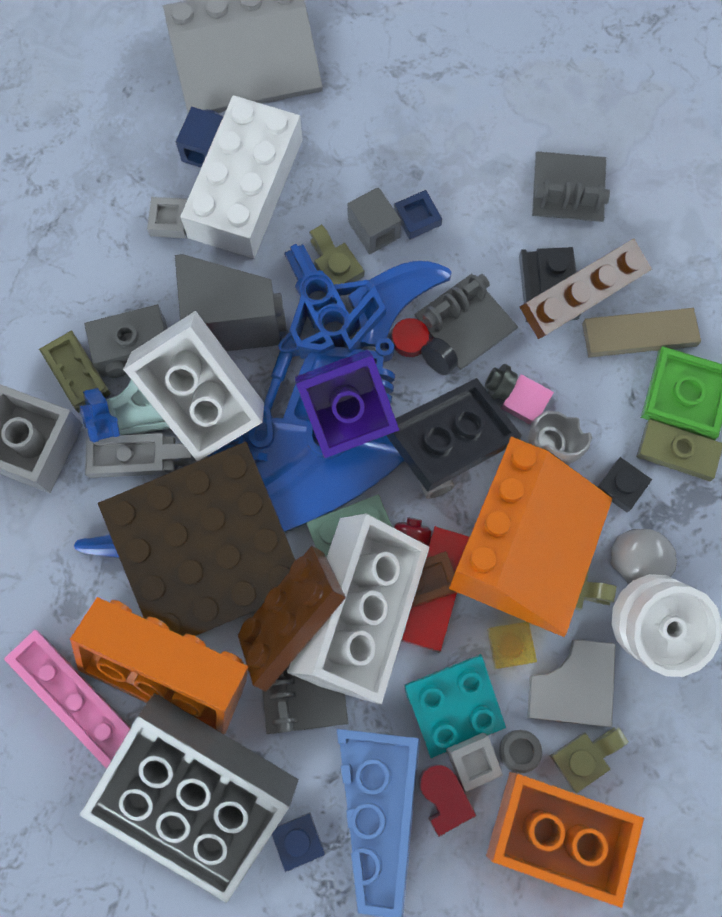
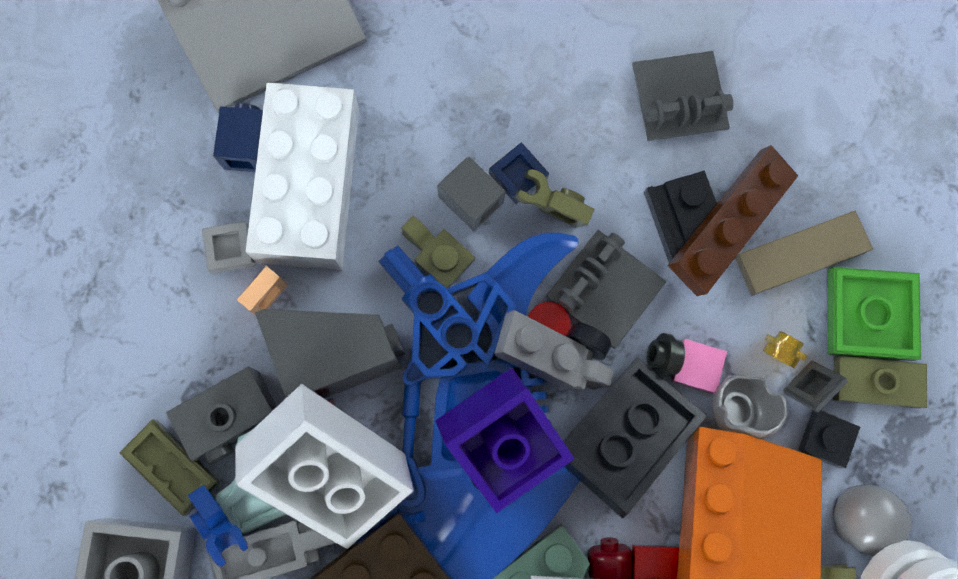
camera: 20 degrees left, 5 degrees up
(189, 246) = (262, 291): none -> light nougat tile
(403, 354) = (549, 354): none -> light grey hinge
(445, 245) = (562, 205): none -> olive plate
(603, 401) = (785, 349): none -> clear yellow plate
(622, 438) = (815, 386): none -> dark grey slope

